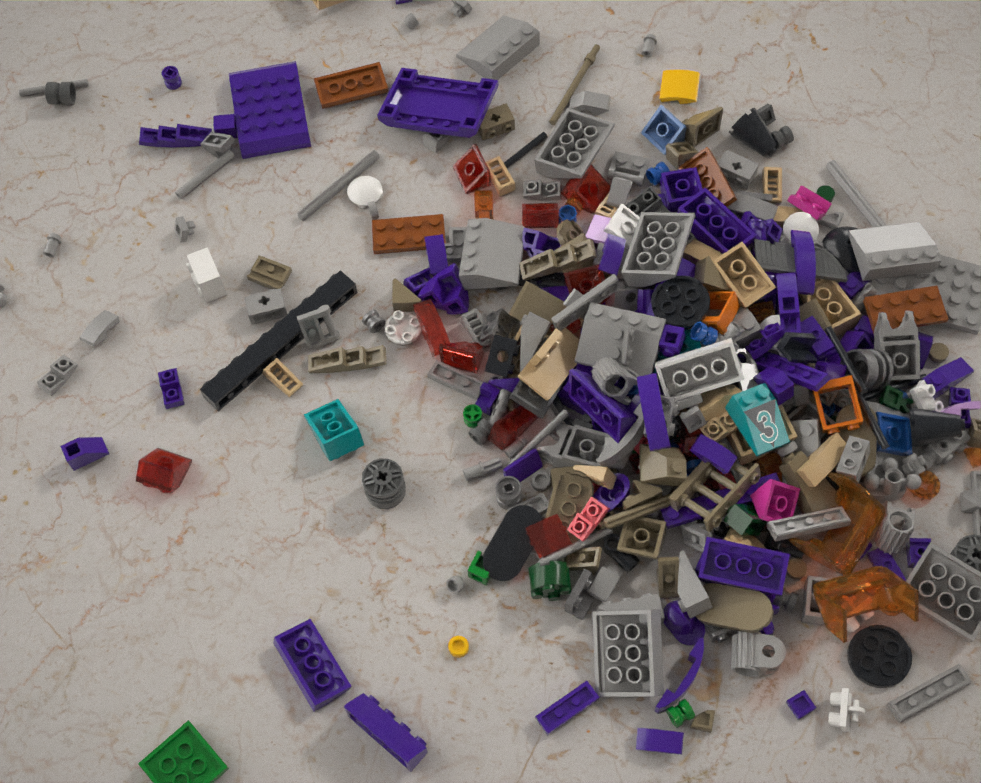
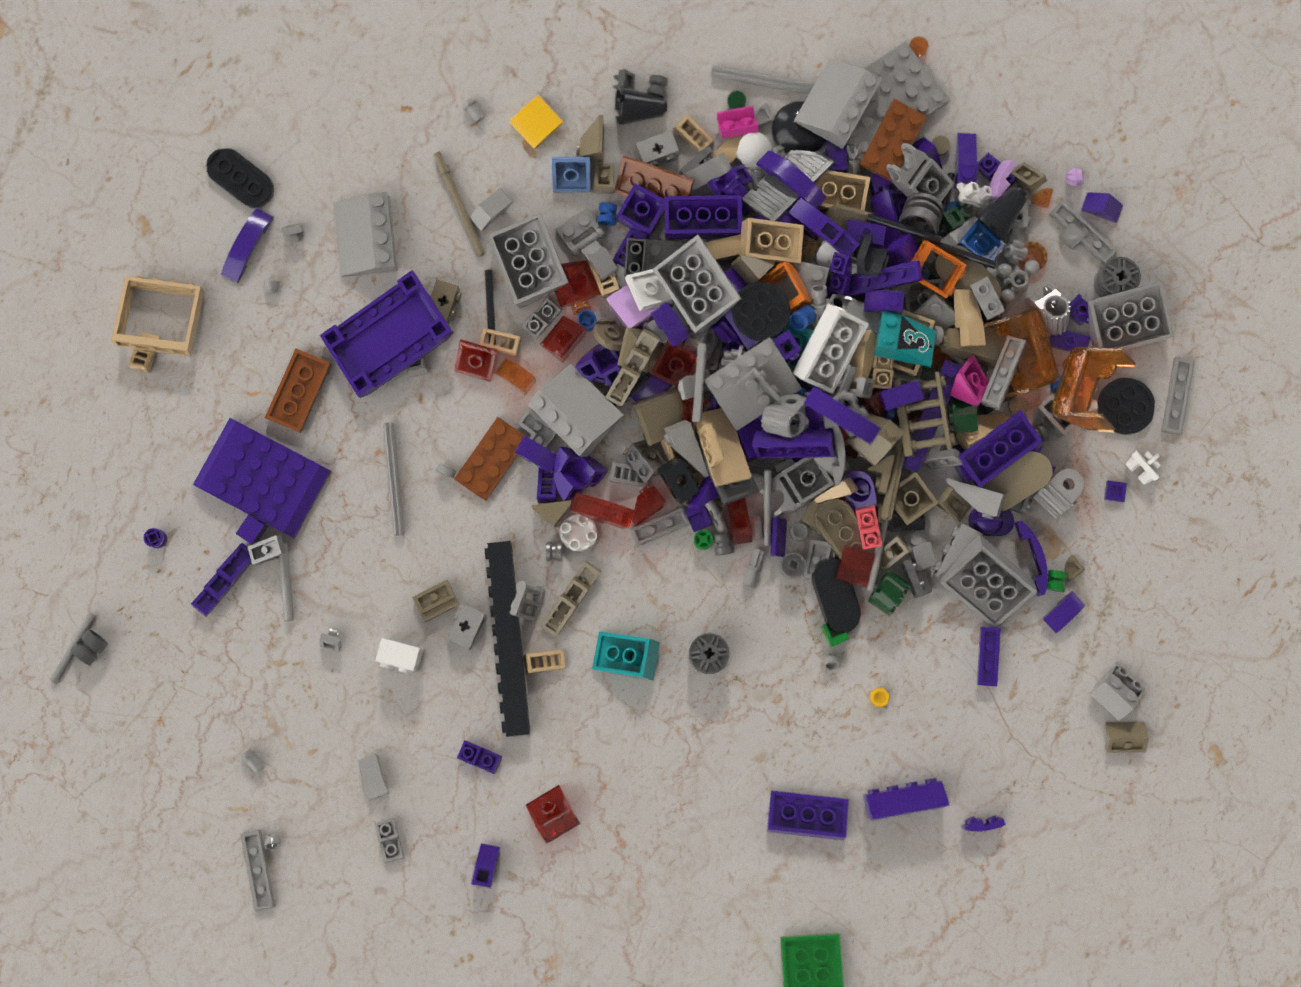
camera: 55 degrees left, 20 degrees up
(364, 190) = (418, 462): white dish -> none

